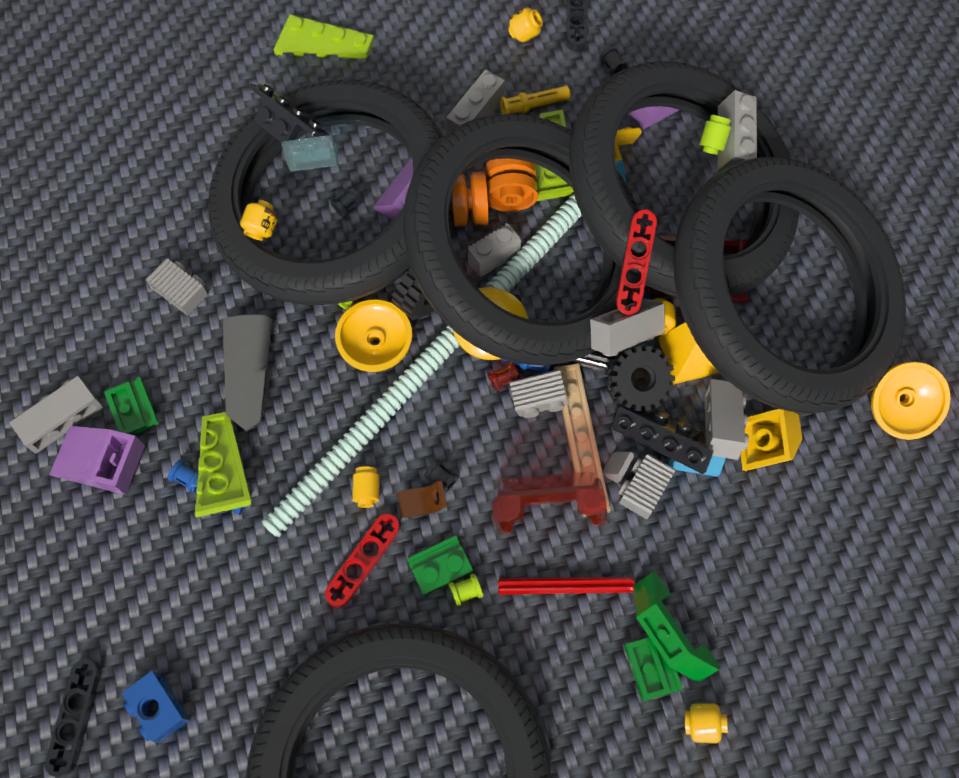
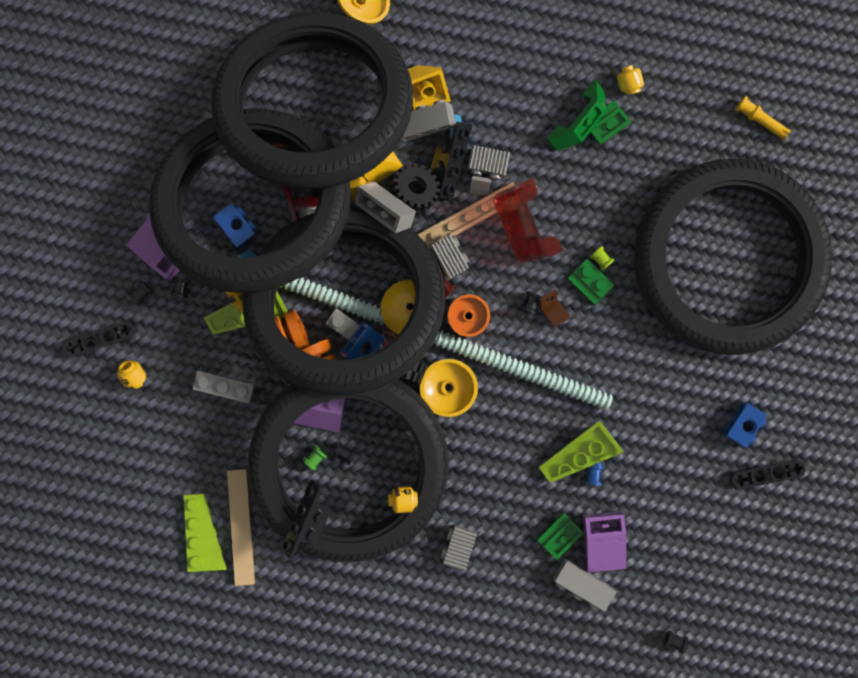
camera: 110 degrees left, 20 degrees up
(246, 367) = (503, 469): dark grey panel -> none
(291, 72) = (241, 527): none -> tan tile
(310, 153) = (334, 485): clear light blue slope -> none
(355, 170) = (315, 457): none -> bright green bush
(359, 558) = (605, 335): red beam -> none
(366, 487) = (557, 350): yellow brick -> none
(454, 389) = (468, 304): none -> orange wheel
(476, 254) = (362, 335): none -> blue brick
(525, 102) = (185, 325): yellow pin -> none
(565, 585) = (574, 195): red axle -> none
(640, 263) = (348, 213): red beam -> none
(667, 166) = (226, 219): none -> blue brick
(715, 134) = (216, 184): lime brick -> none
(743, 134) = (204, 170): light grey brick -> none

